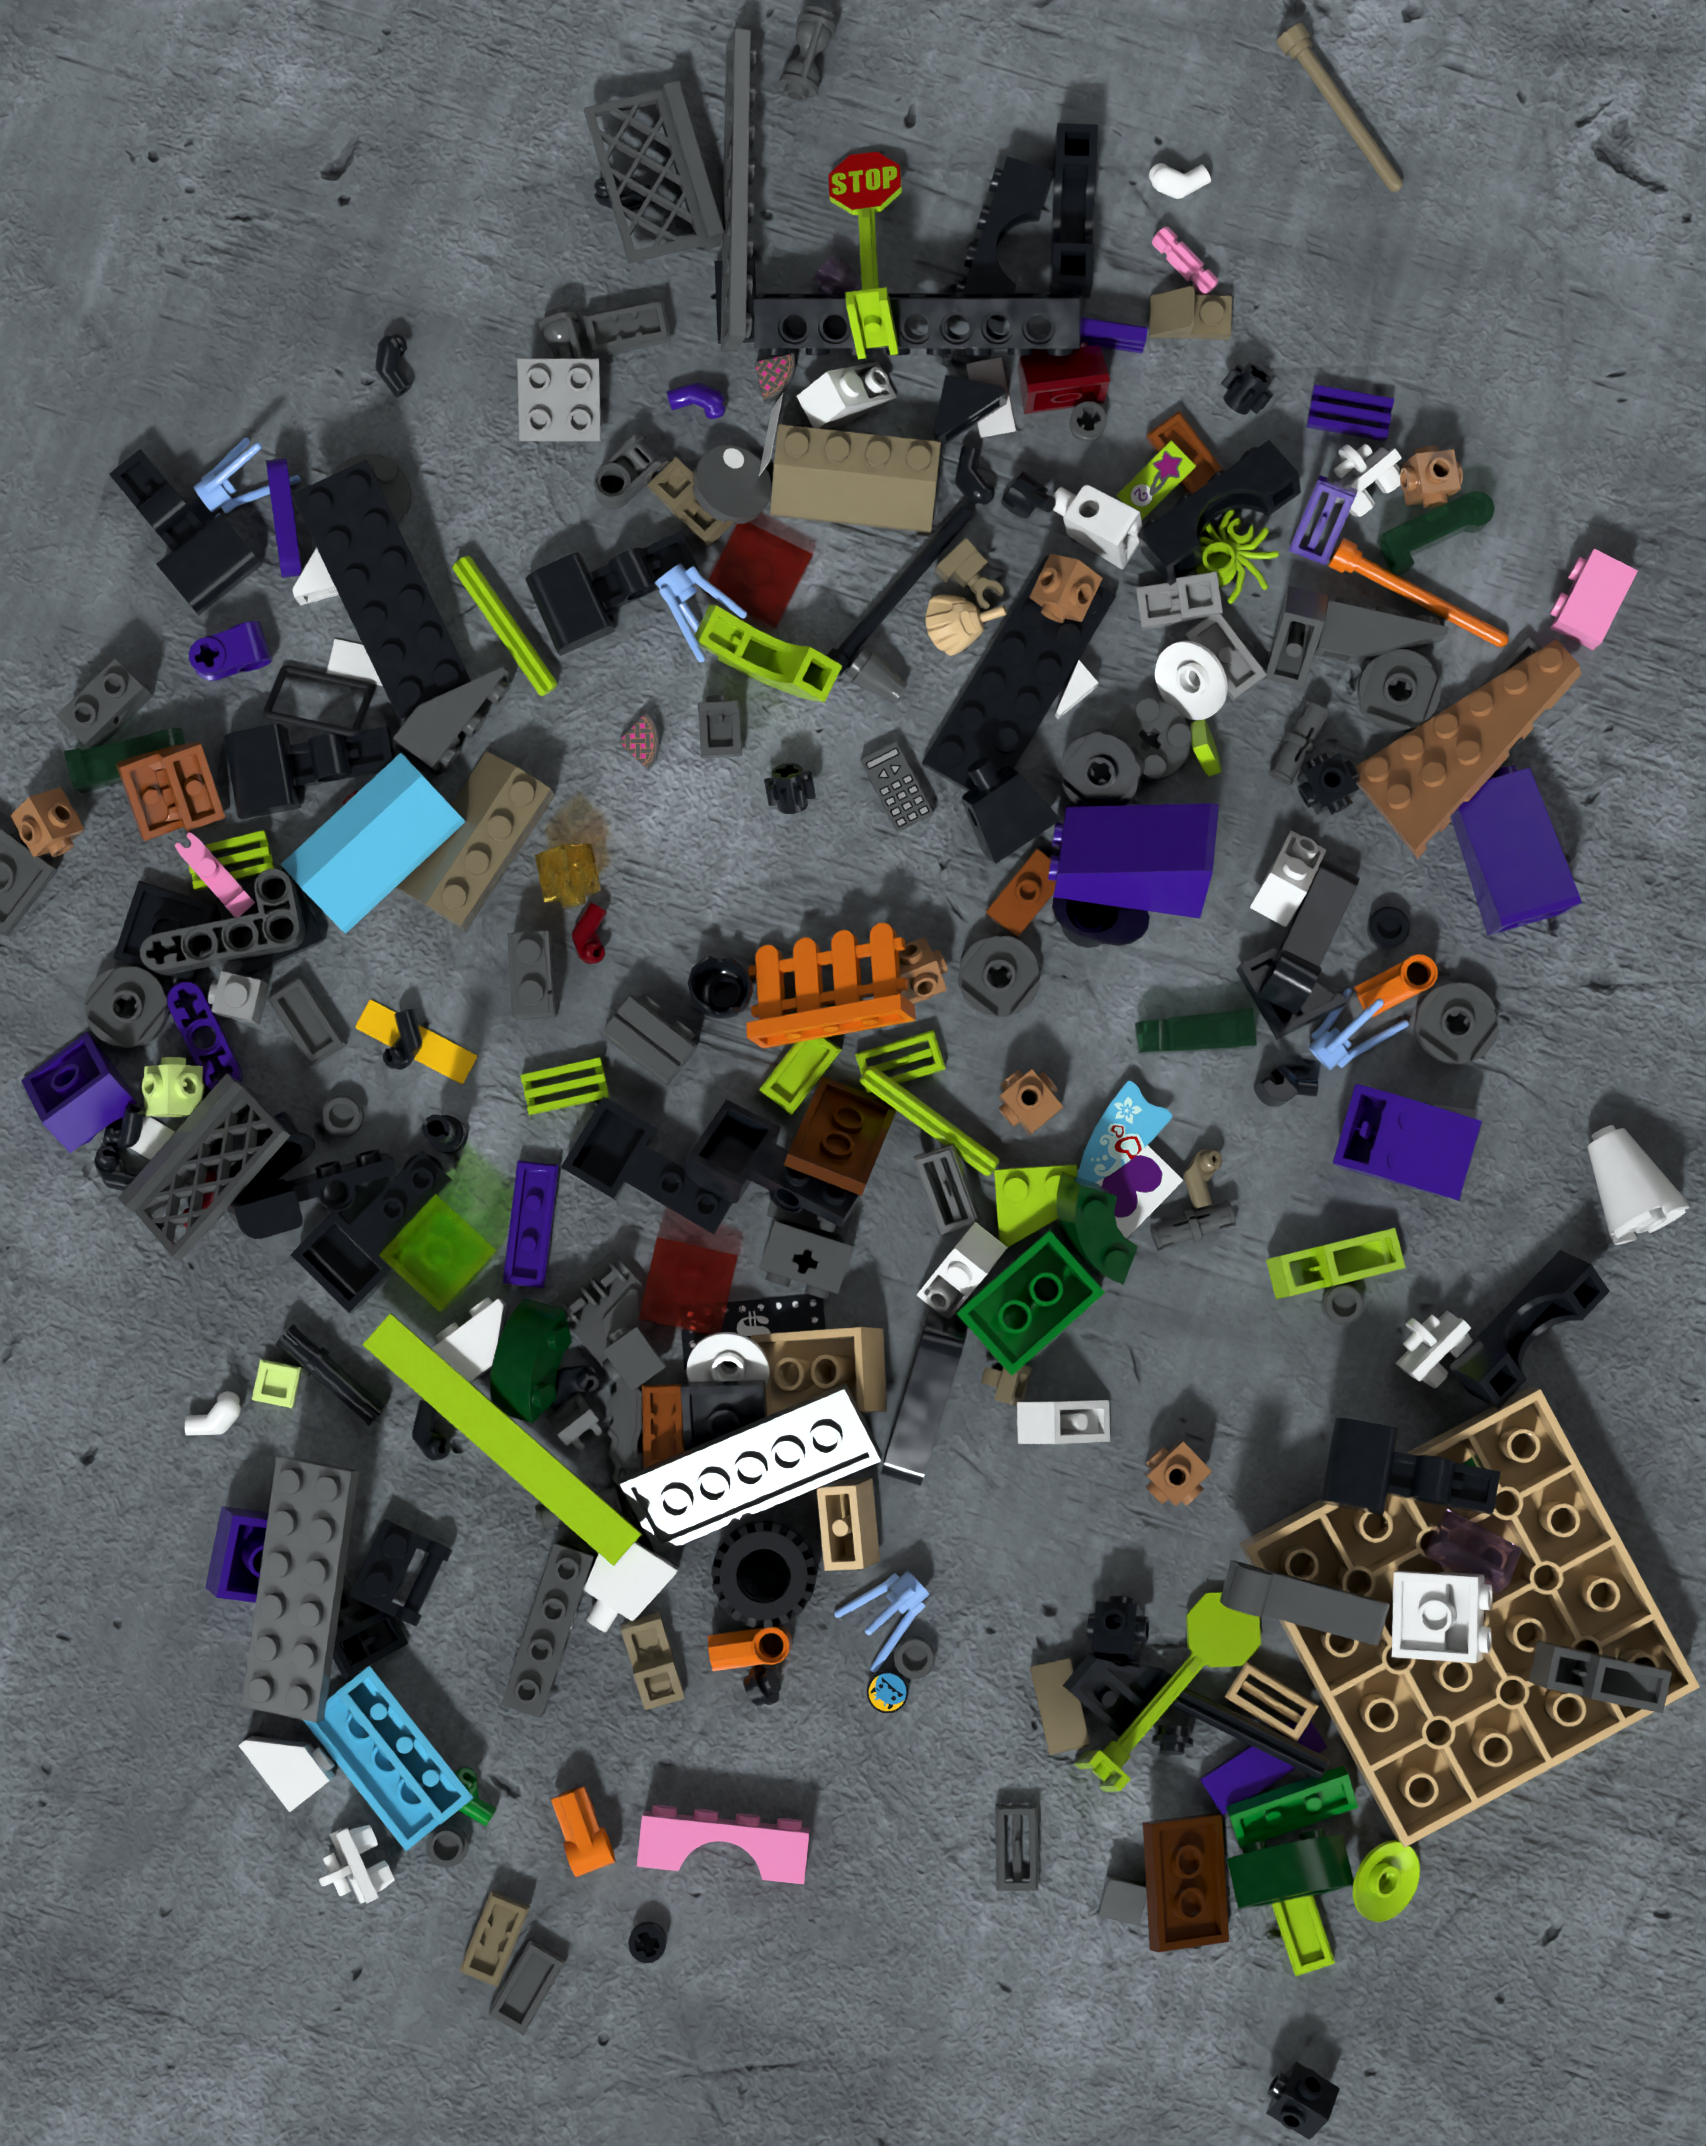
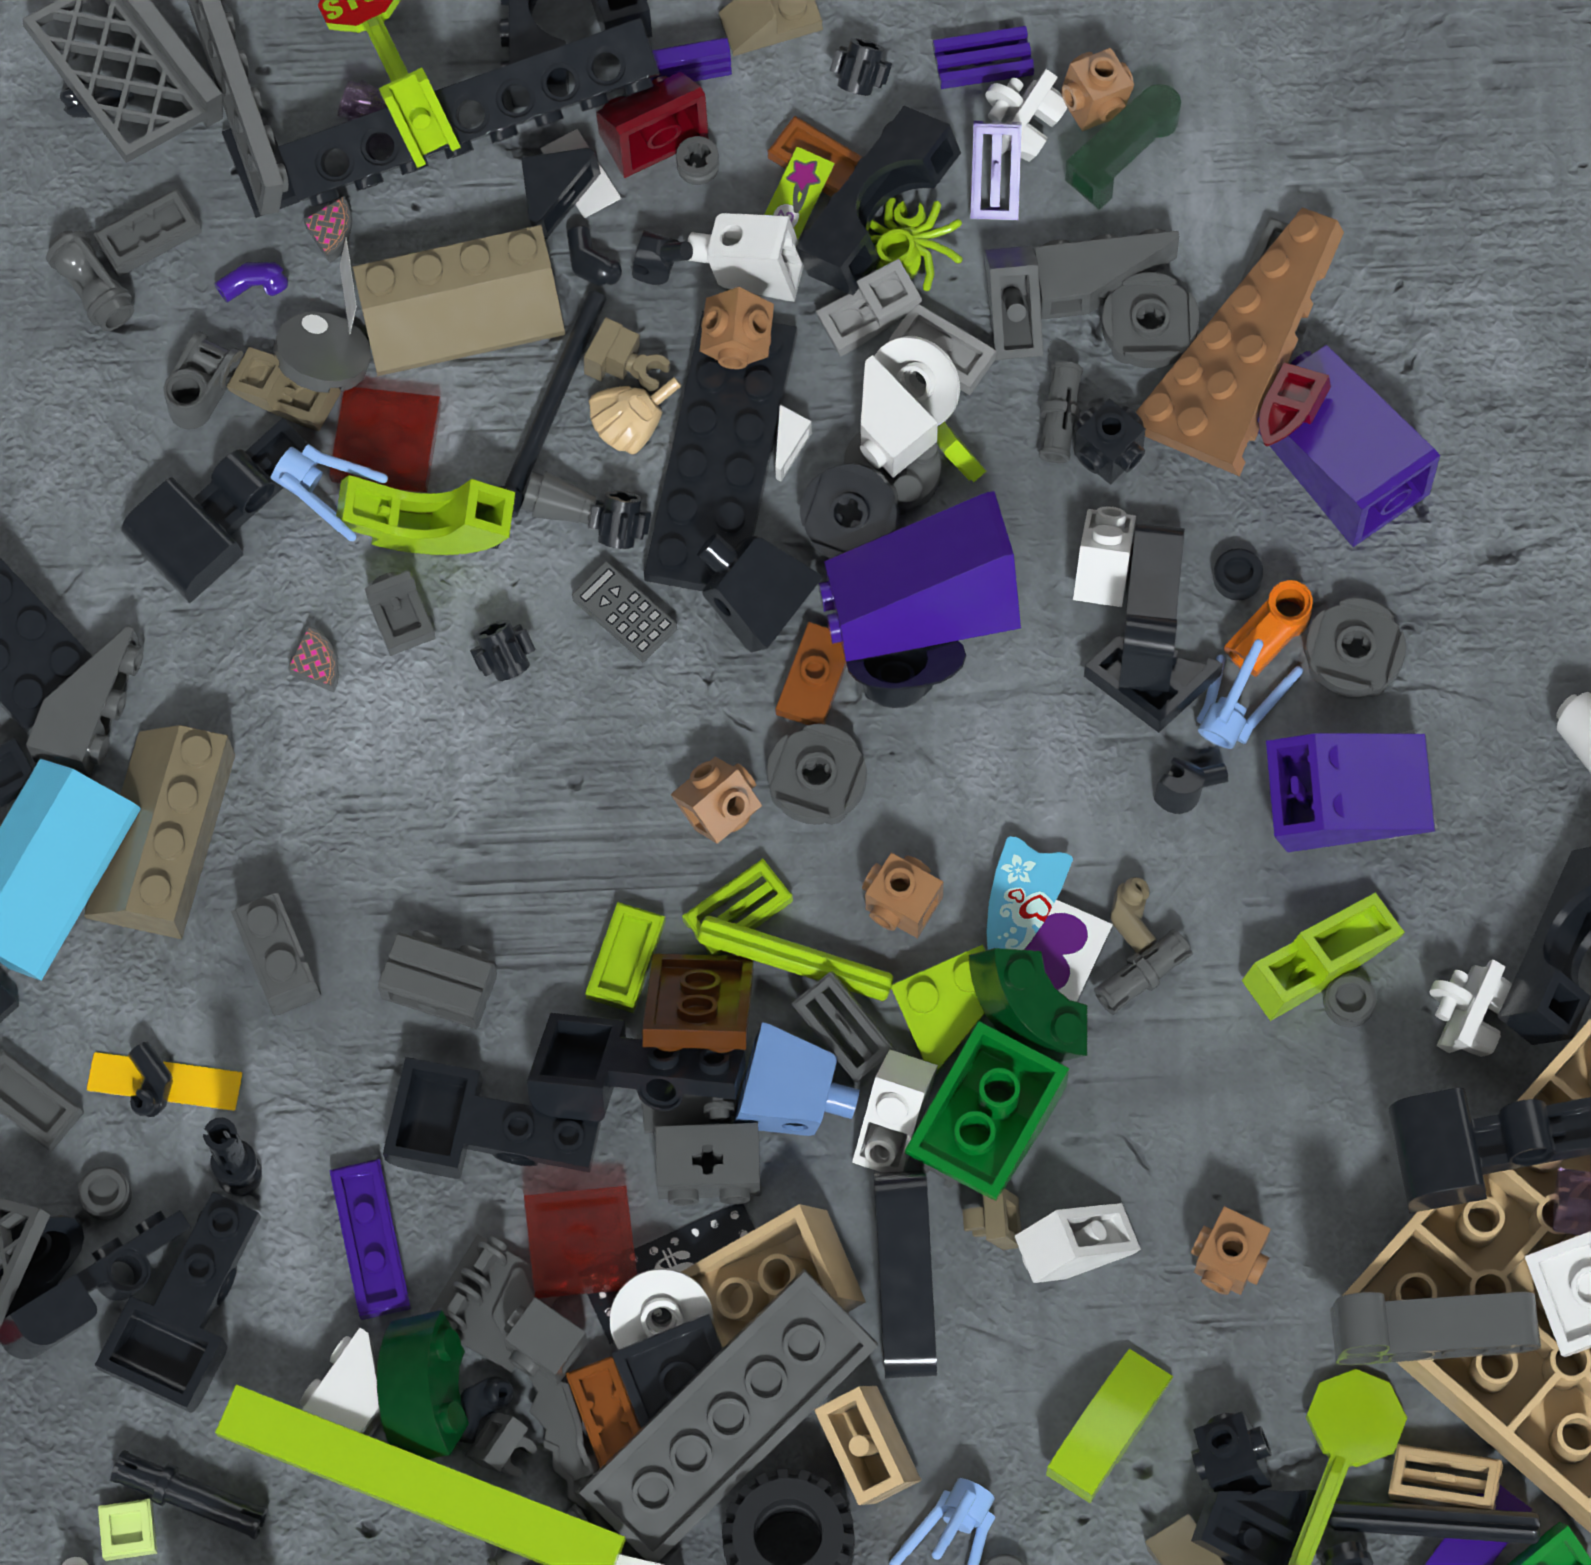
camera: 15 degrees left, 15 degrees down
(427, 1435) = (328, 1525): black arm -> none
(439, 1253) = (273, 1302): clear neon green brick -> none
(504, 625) = (115, 589): lime axle -> none
(531, 1093) = (345, 1054): lime tile -> none
(559, 399) = (96, 325): light grey hinge -> none
(568, 874) = (279, 827): clear yellow brick -> none
(586, 937) = (324, 894): dark red arm -> none
(720, 987) = (499, 893): black hair -> none
(845, 395) = (417, 217): white slope -> none
(850, 1010) = (643, 870): orange fence -> none
(889, 1222) = (791, 1085): none -> medium blue torso
(918, 711) = (619, 519): none -> black gear
(1036, 1570) = (1108, 1425): none -> lime slope
(1160, 710) = (892, 421): none -> white slope
(1197, 1033) = (1067, 757): clear green leg -> none
(1350, 559) = (1041, 204): orange piece -> none
(1481, 813) = (1291, 401): none -> dark red plate
(1592, 599) = (1325, 154): bright pink brick -> none

